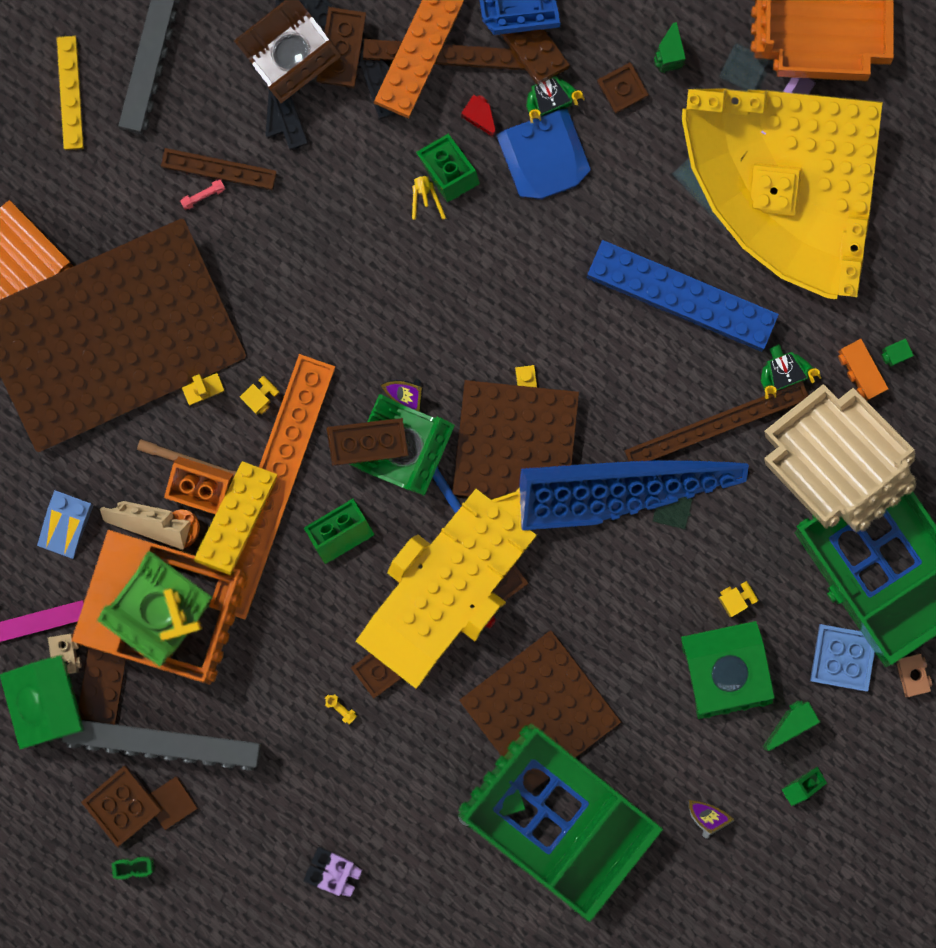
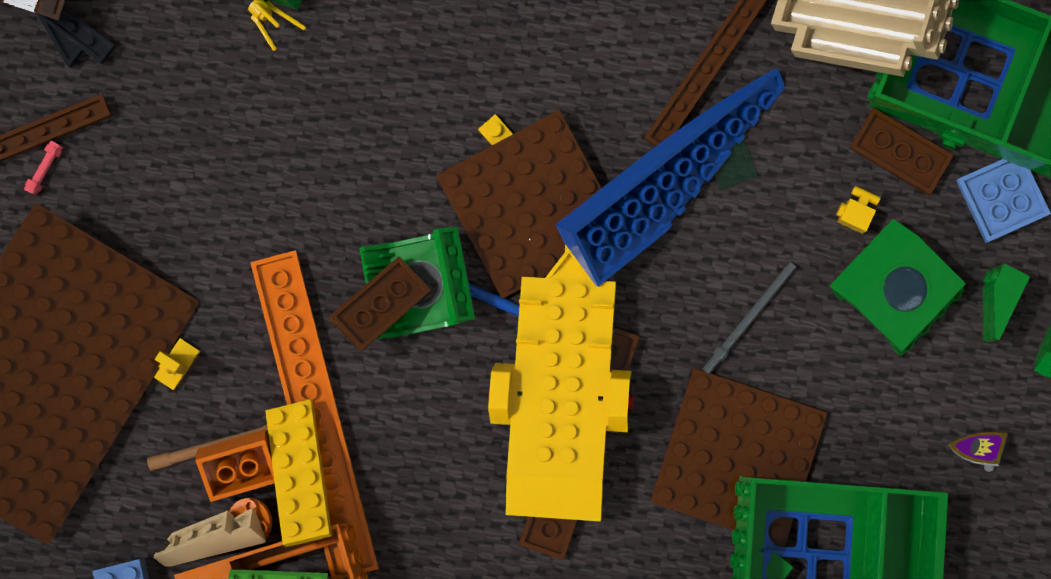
camera: 30 degrees left, 0 degrees up
(256, 398) = (237, 336): yellow brick -> none
(339, 531) = (412, 414): green slope -> none
(404, 392) = (384, 229): shield -> none
(576, 632) = (721, 352): none -> dark grey bar
(794, 579) = (901, 151): none -> reddish brown plate

